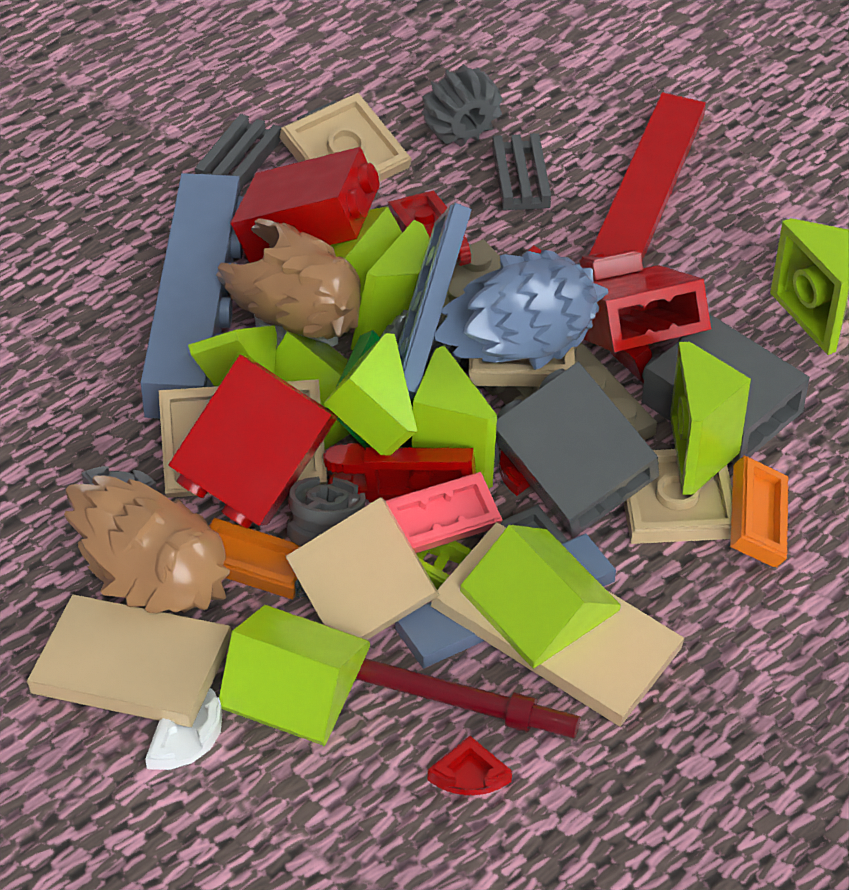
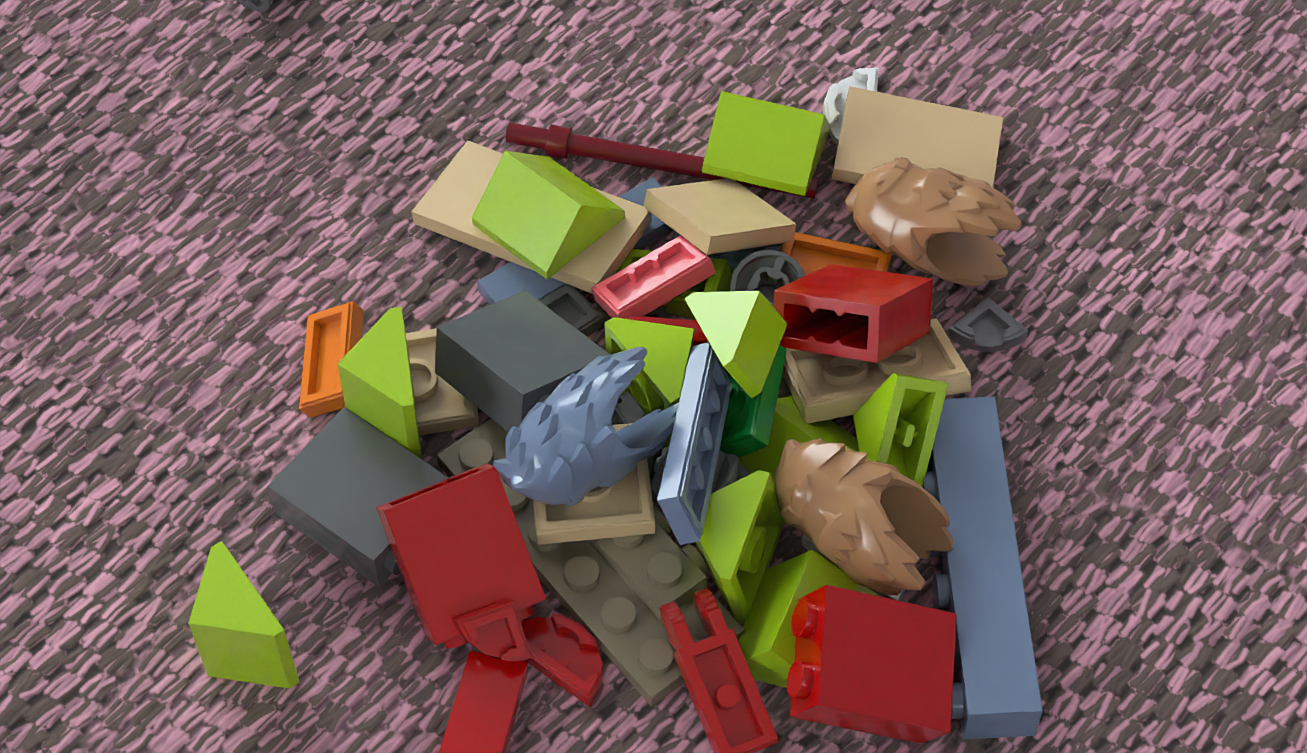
camera: 175 degrees right, 10 degrees up
(469, 768) = (599, 95): red tile -> none

